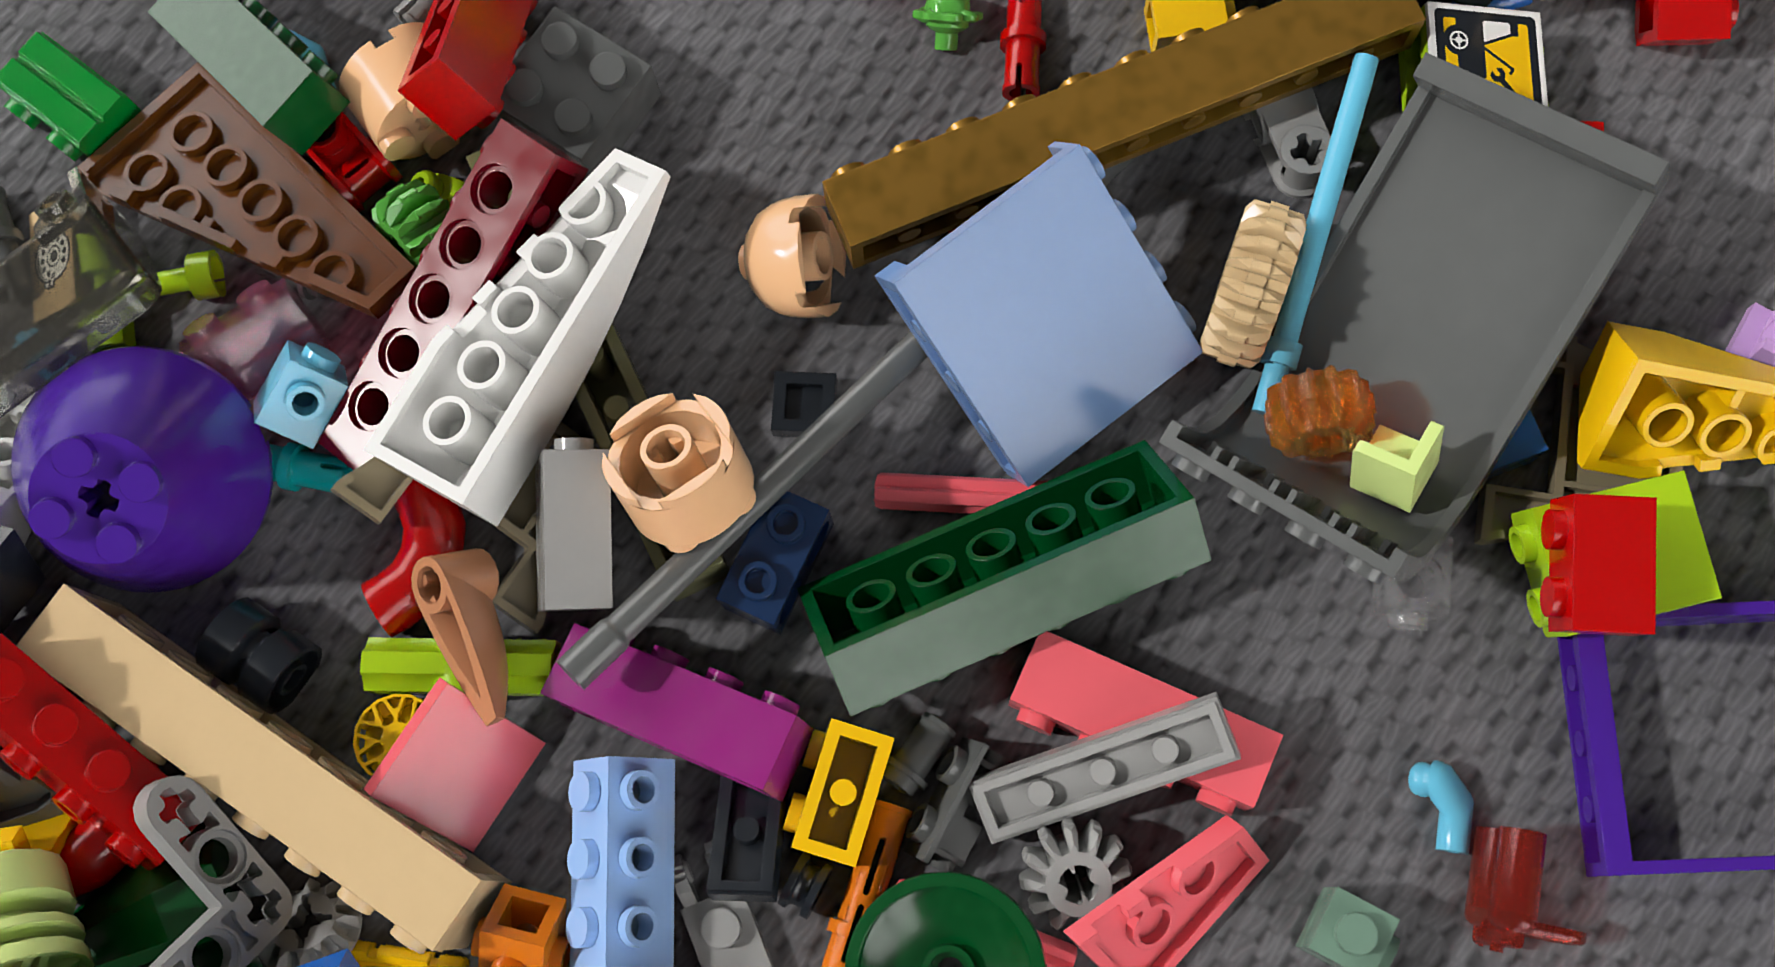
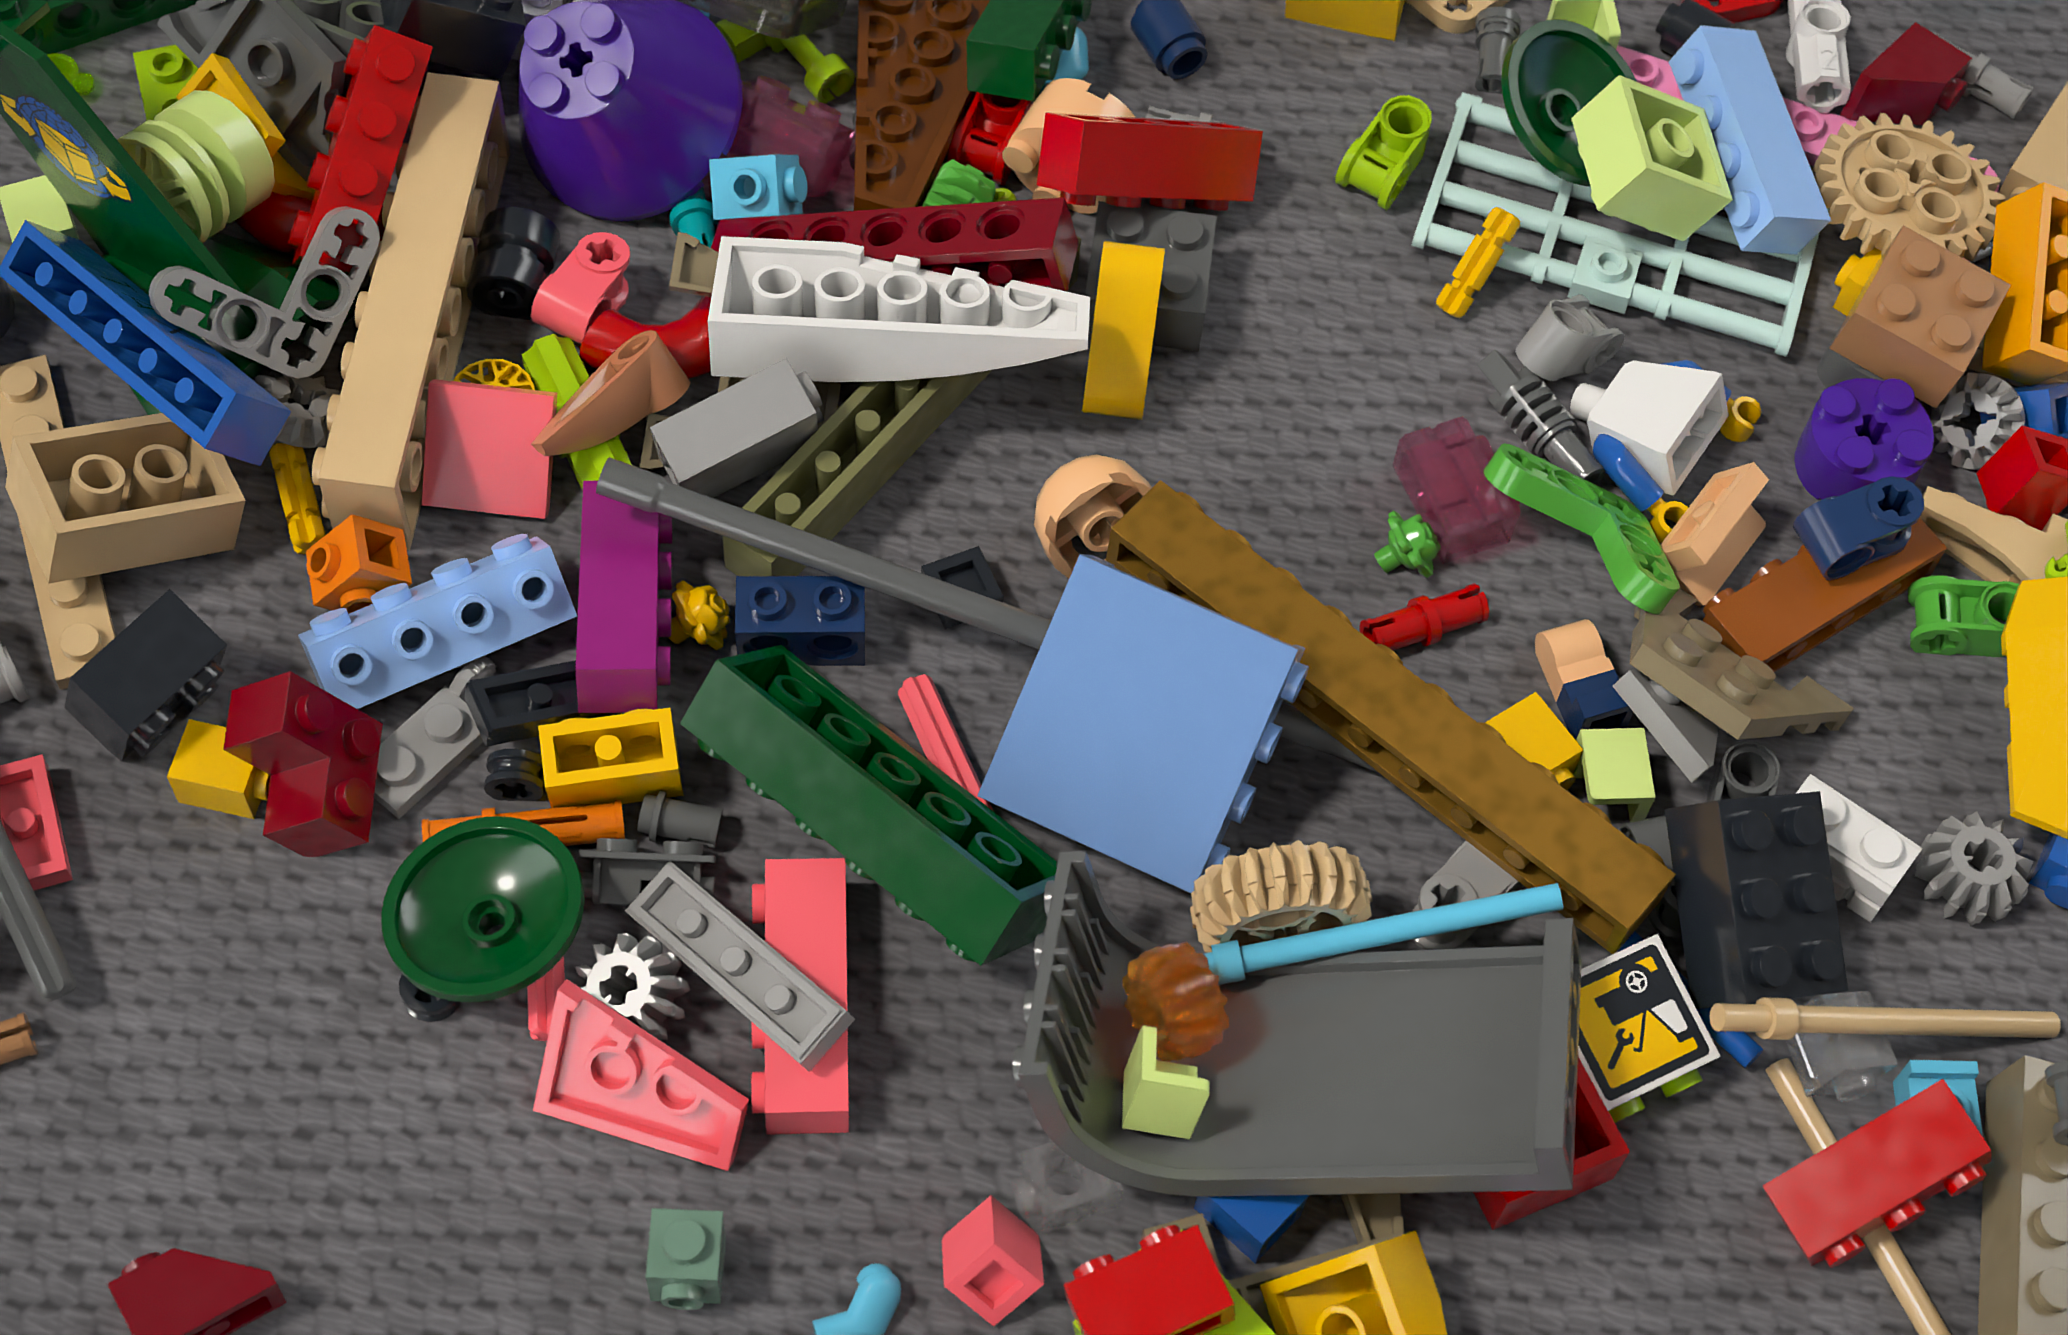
camera: 50 degrees right, 15 degrees down
(327, 604) = (584, 286): none -> coral piece
(611, 115) = (1123, 329): none -> yellow beam
(679, 470) = (824, 474): light nougat brick -> none
(722, 645) = (699, 615): none -> yellow plant
(1451, 674) = (992, 1261): none -> coral panel

